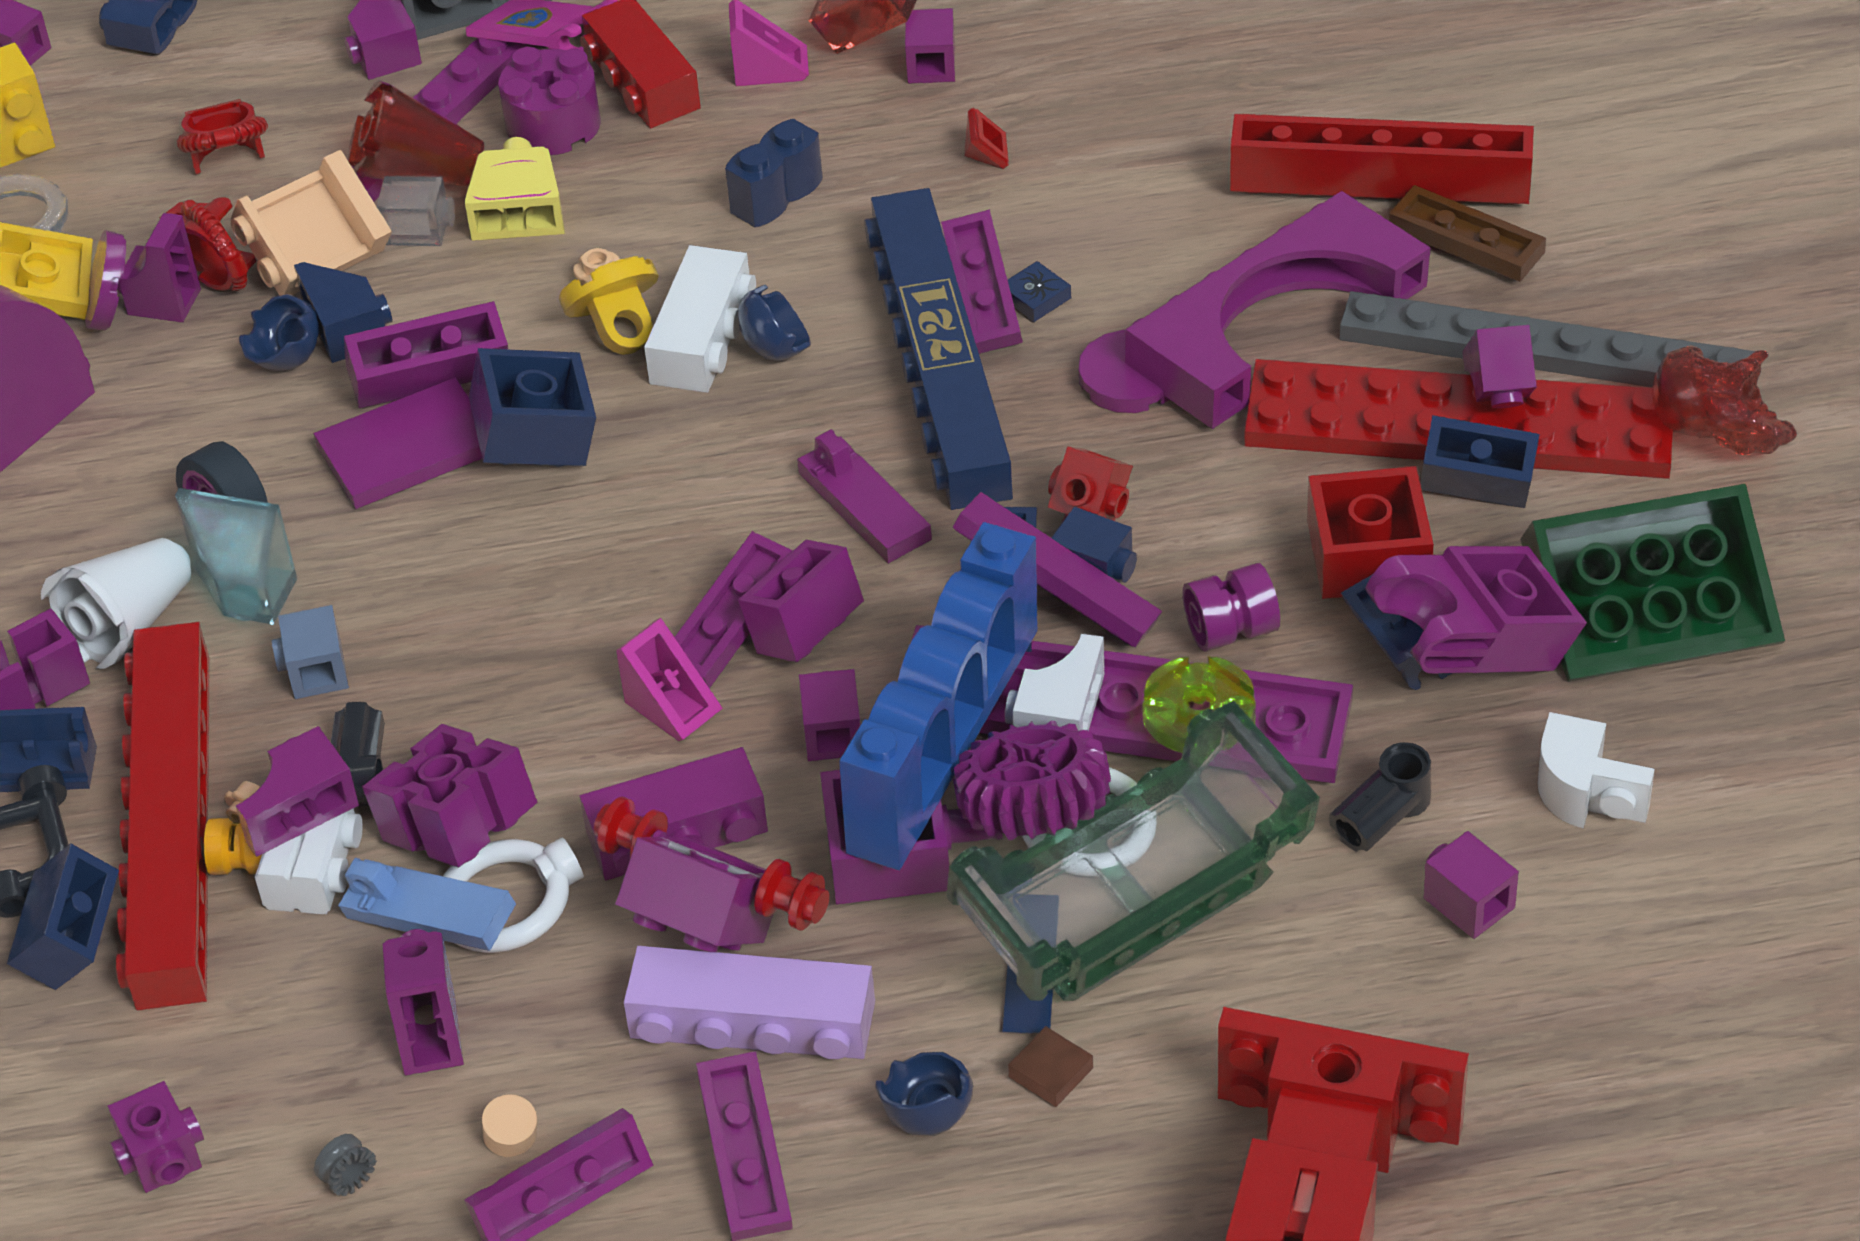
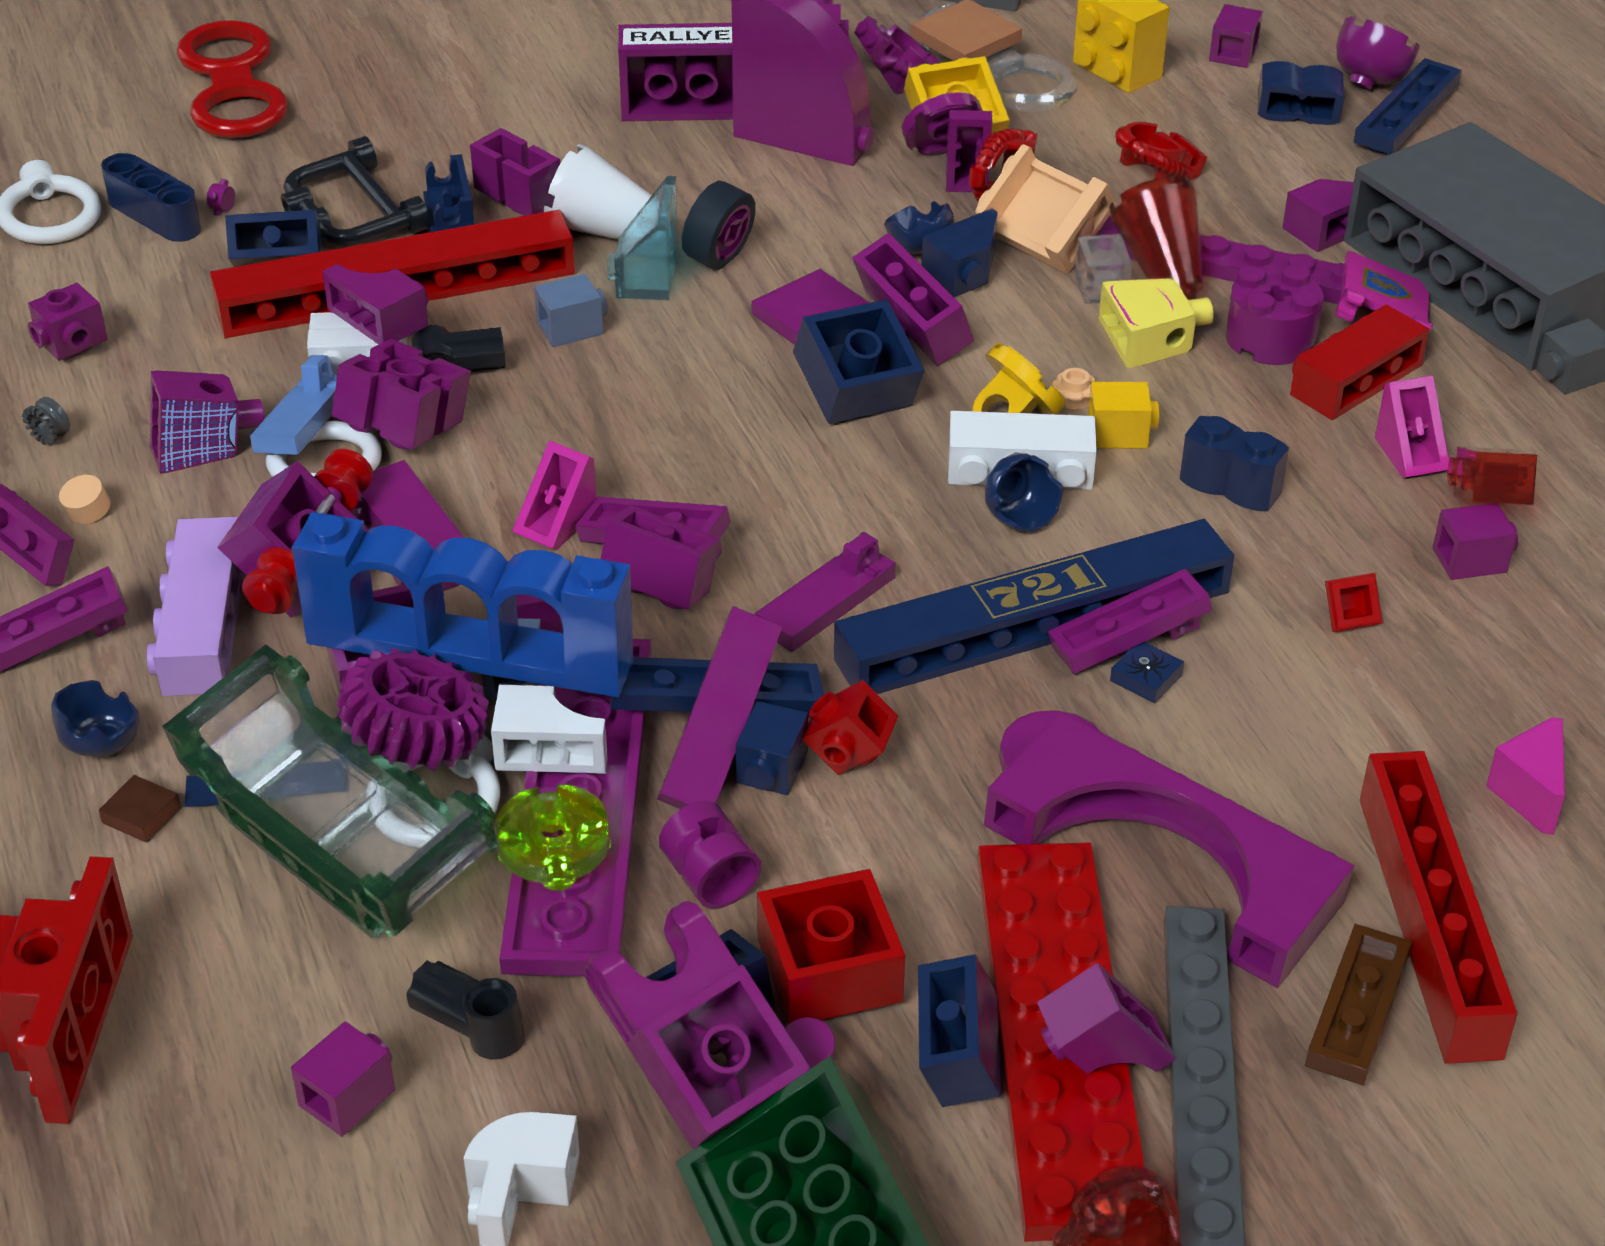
camera: 75 degrees right, 5 degrees down
(665, 234) = (1122, 414): none -> yellow brick
(1236, 76) = (1531, 774): none -> dark pink slope

